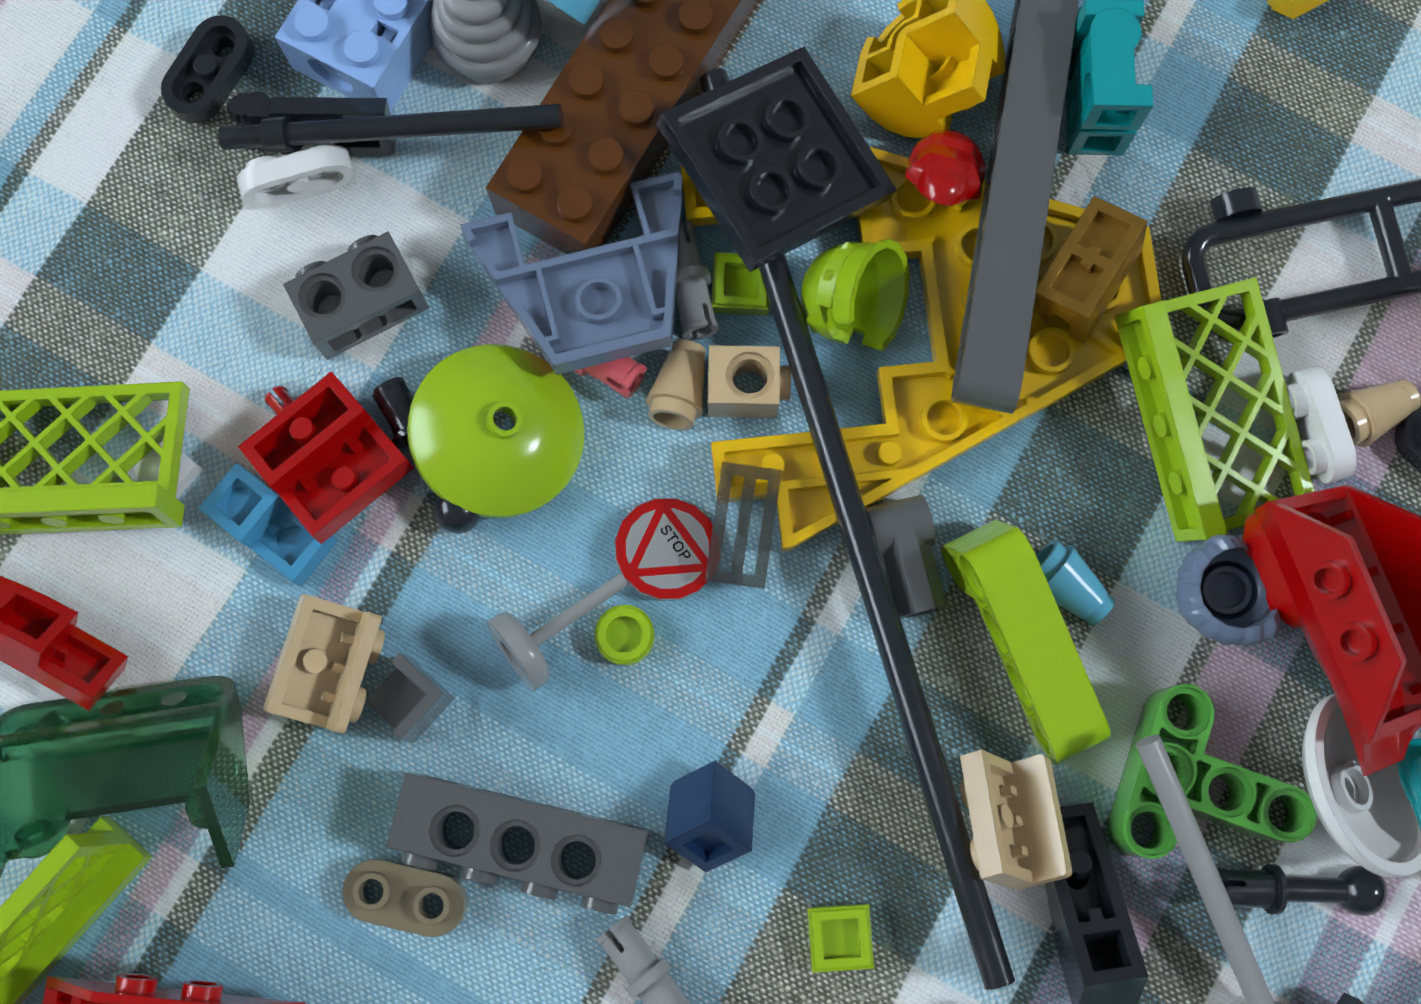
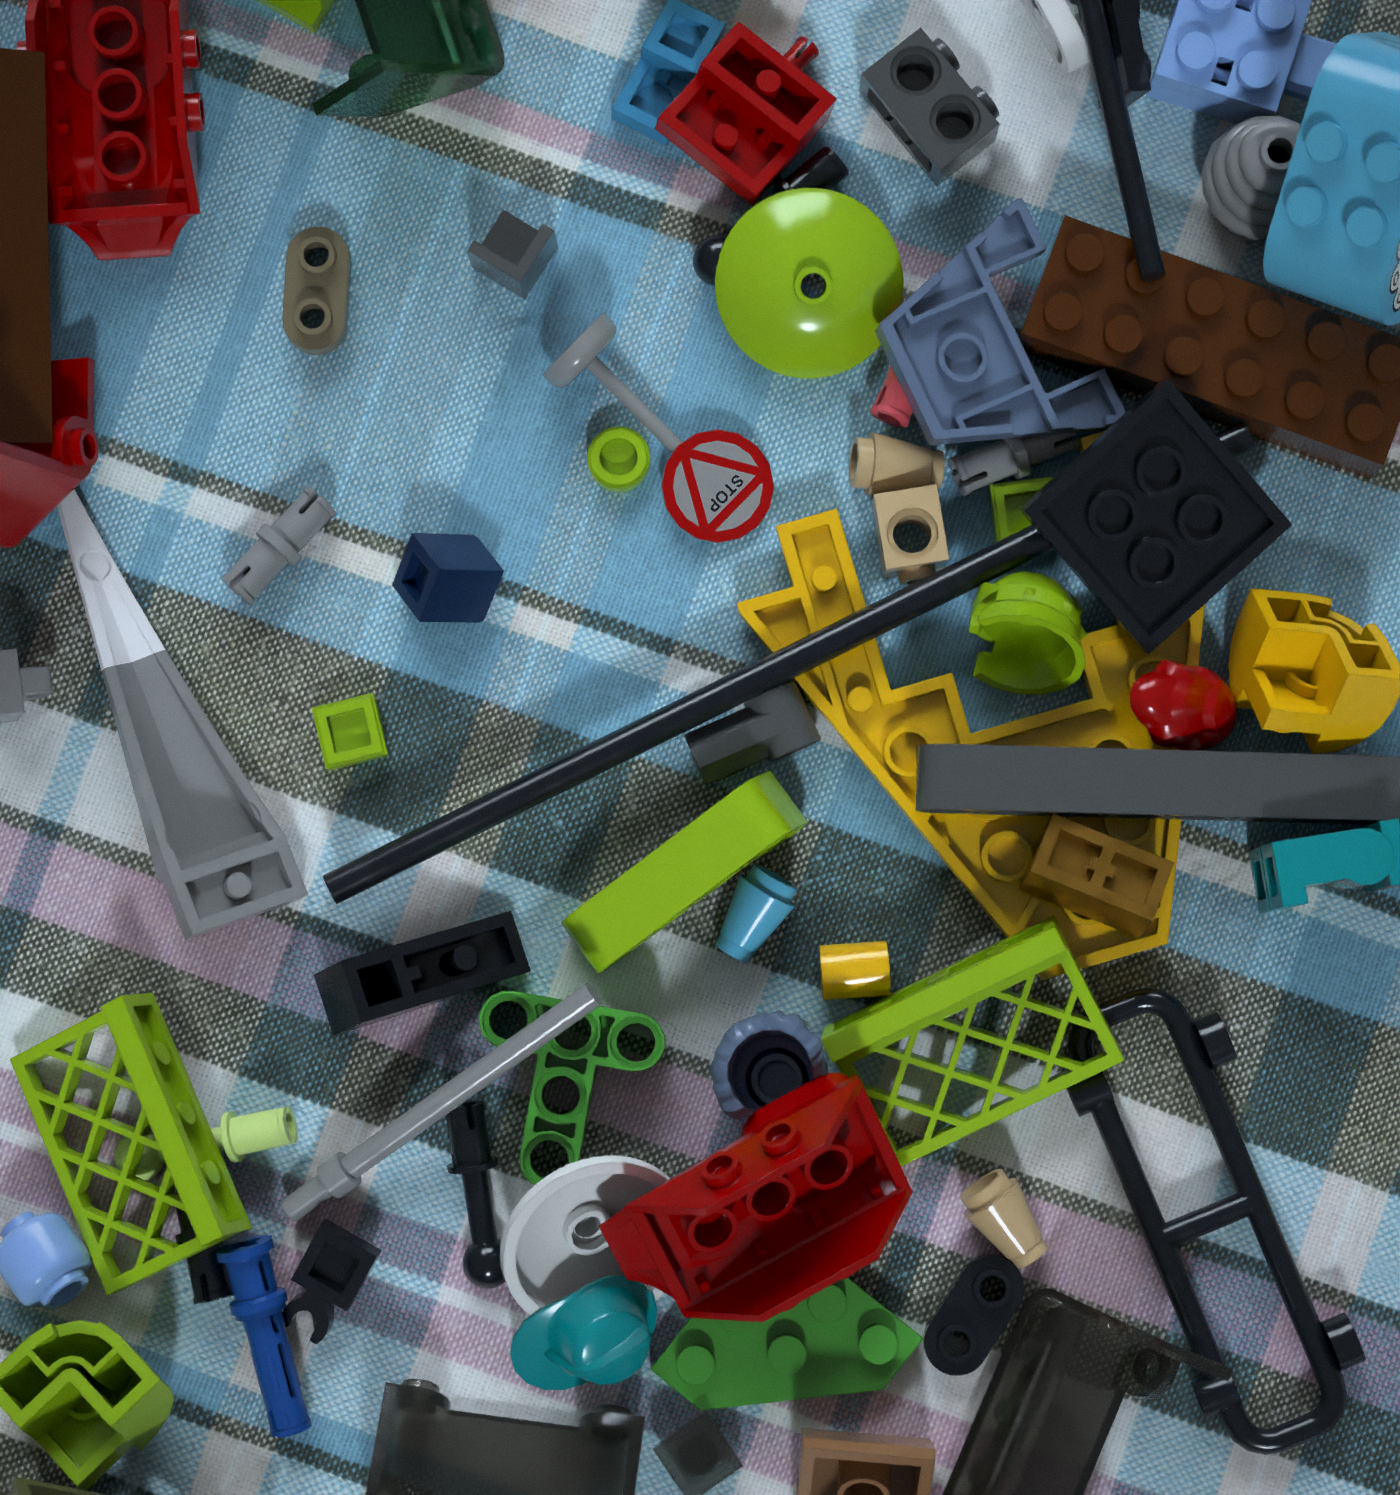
camera: 85 degrees right, 5 degrees up
(325, 664) = (533, 160): tan bracket -> none
(430, 801) = (381, 292): dark grey brick -> none
(750, 474) = (805, 554): clear smoke tile -> none
(1014, 820) = (495, 879): tan bracket -> none
(1134, 502) = (854, 970): none -> yellow piece
(1321, 425) = (1001, 1145): white plate -> none

